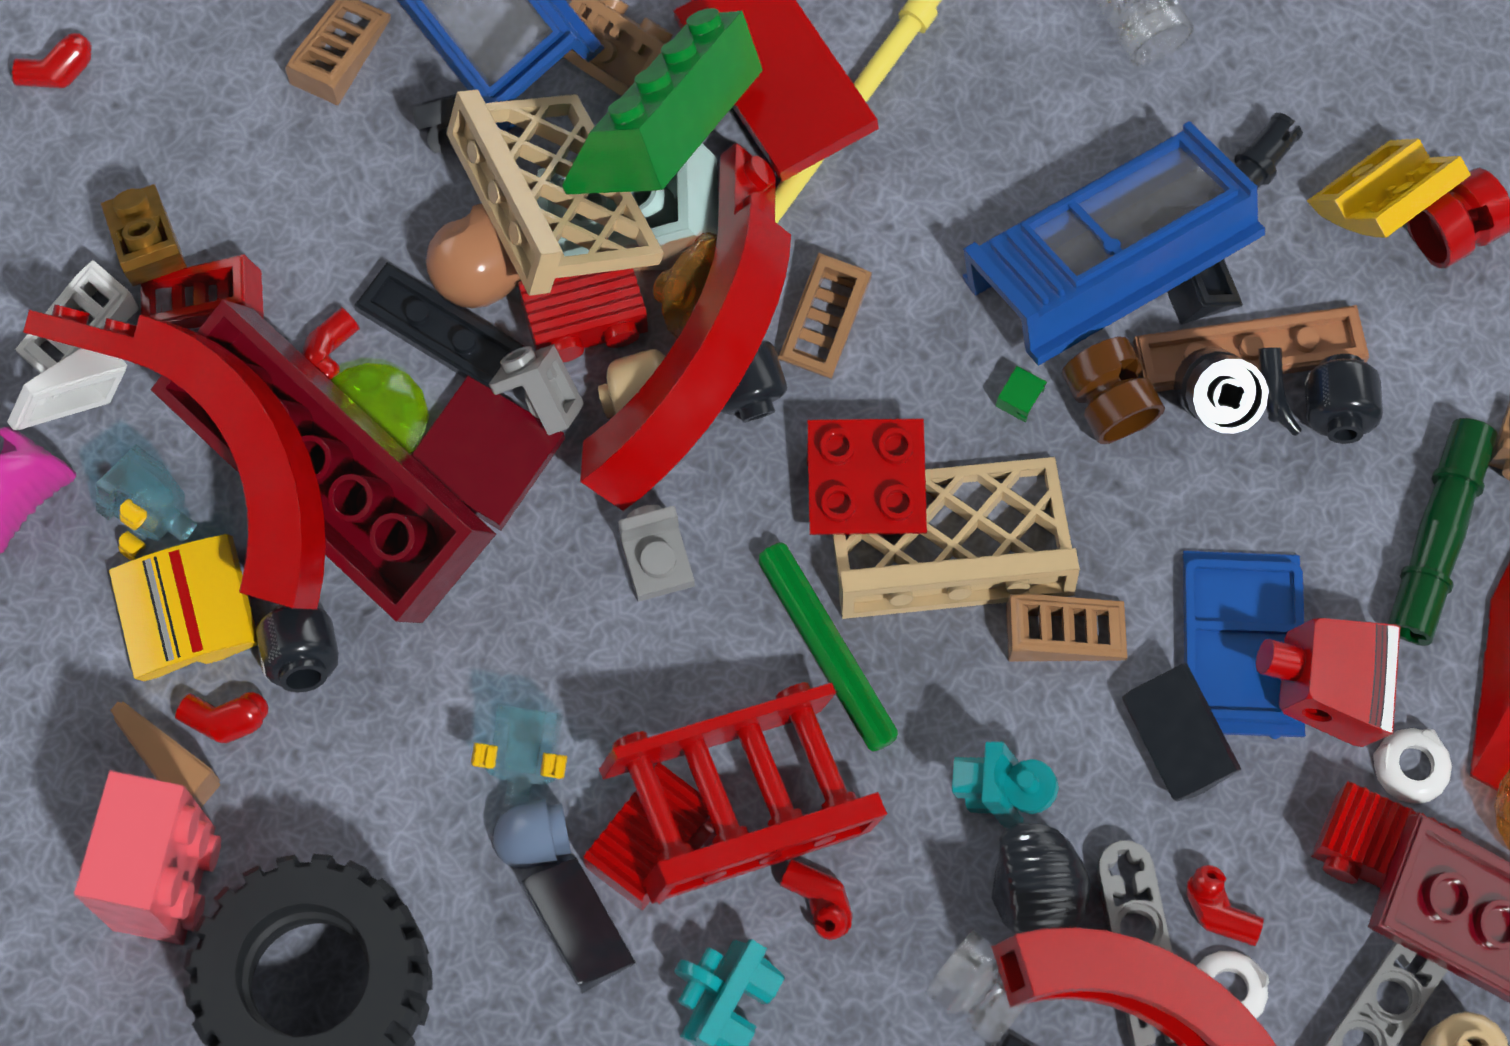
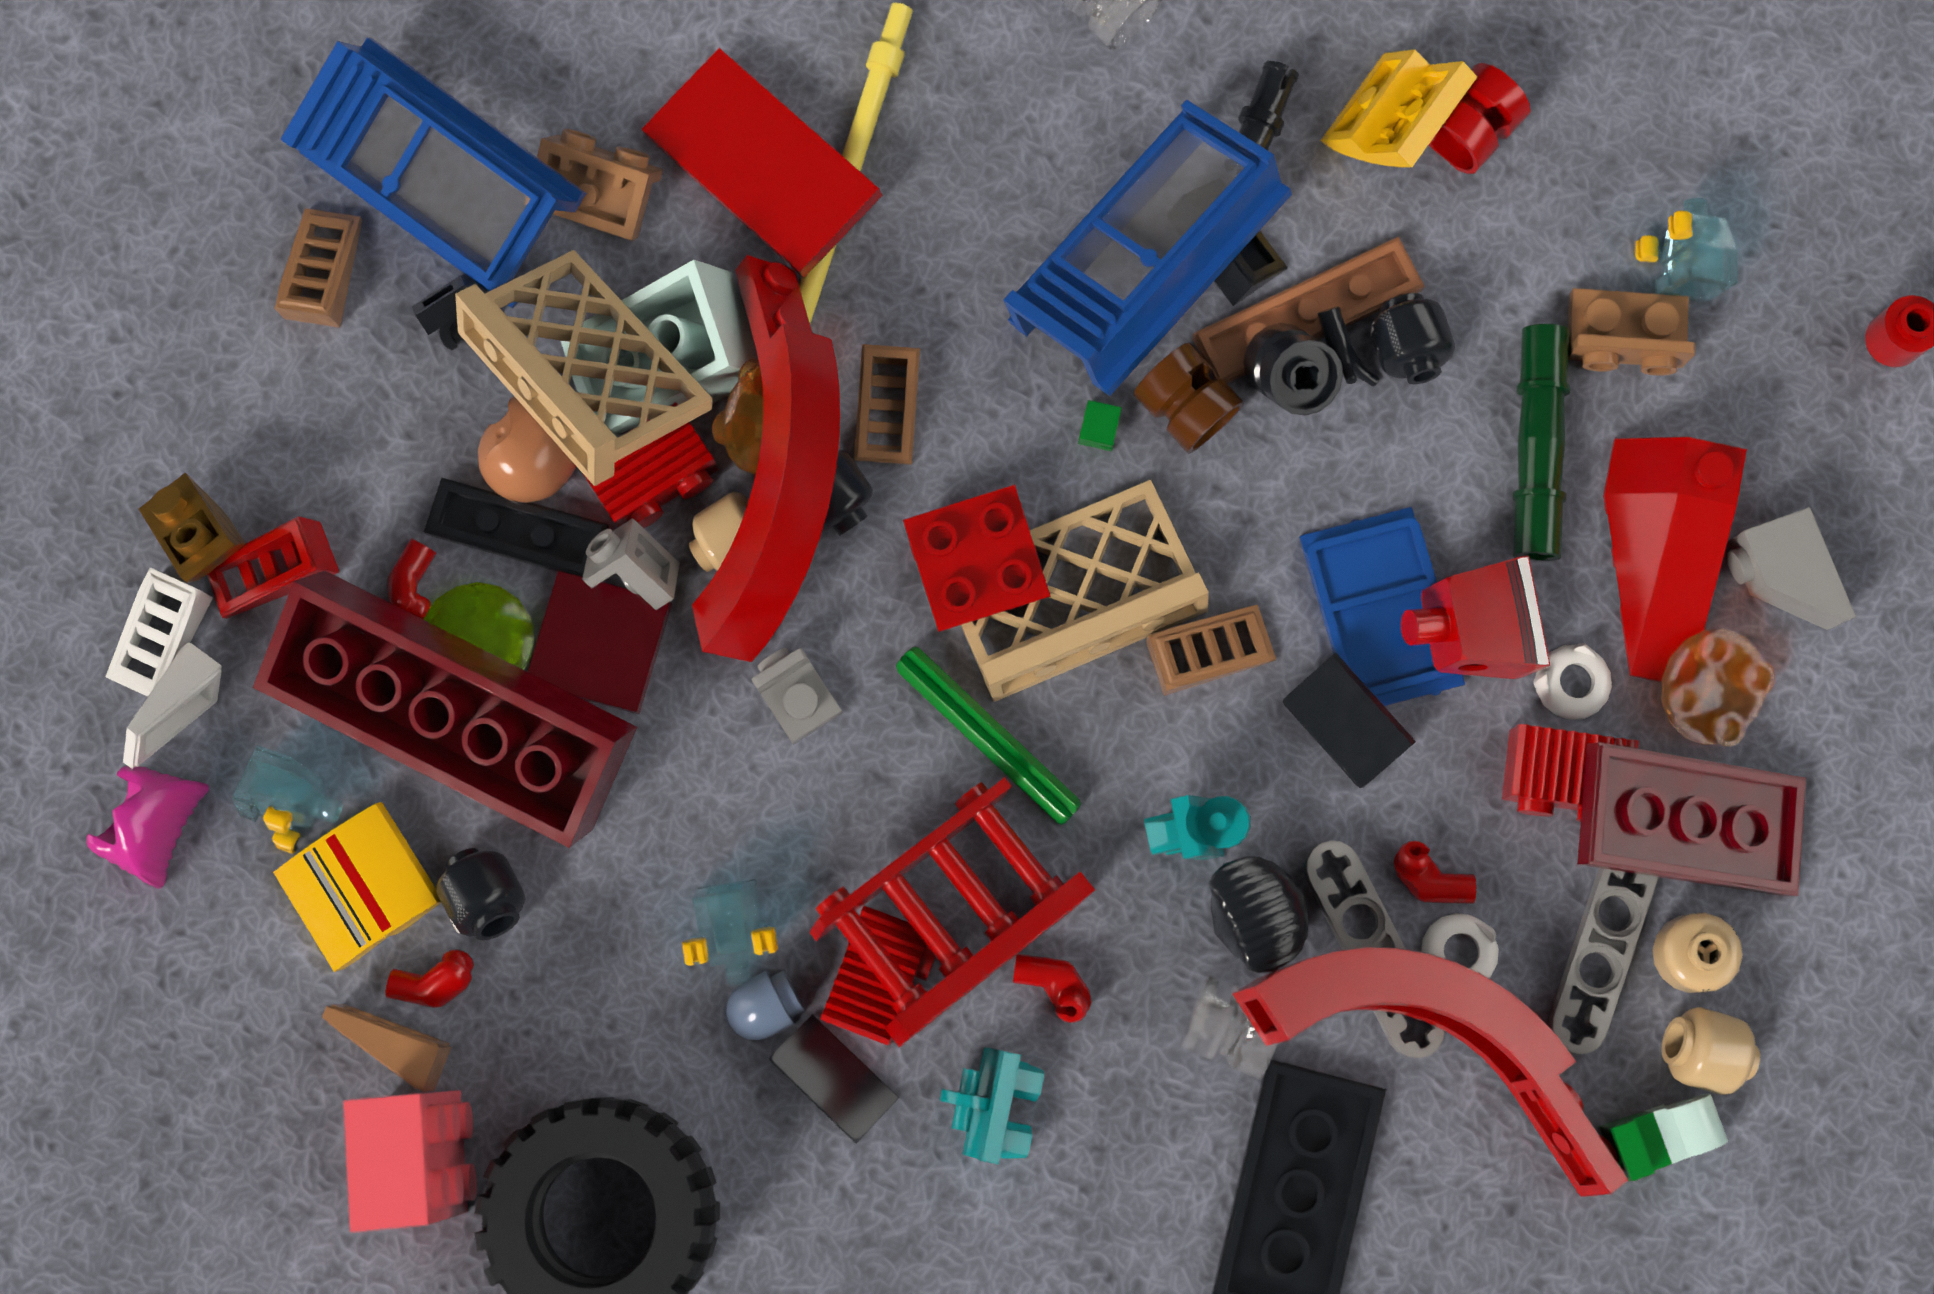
camera: 10 degrees left, 10 degrees up
(58, 67) = (47, 373): red arm -> none
(273, 463) = (376, 707): red arch -> none
(668, 107) = (673, 247): green slope -> none

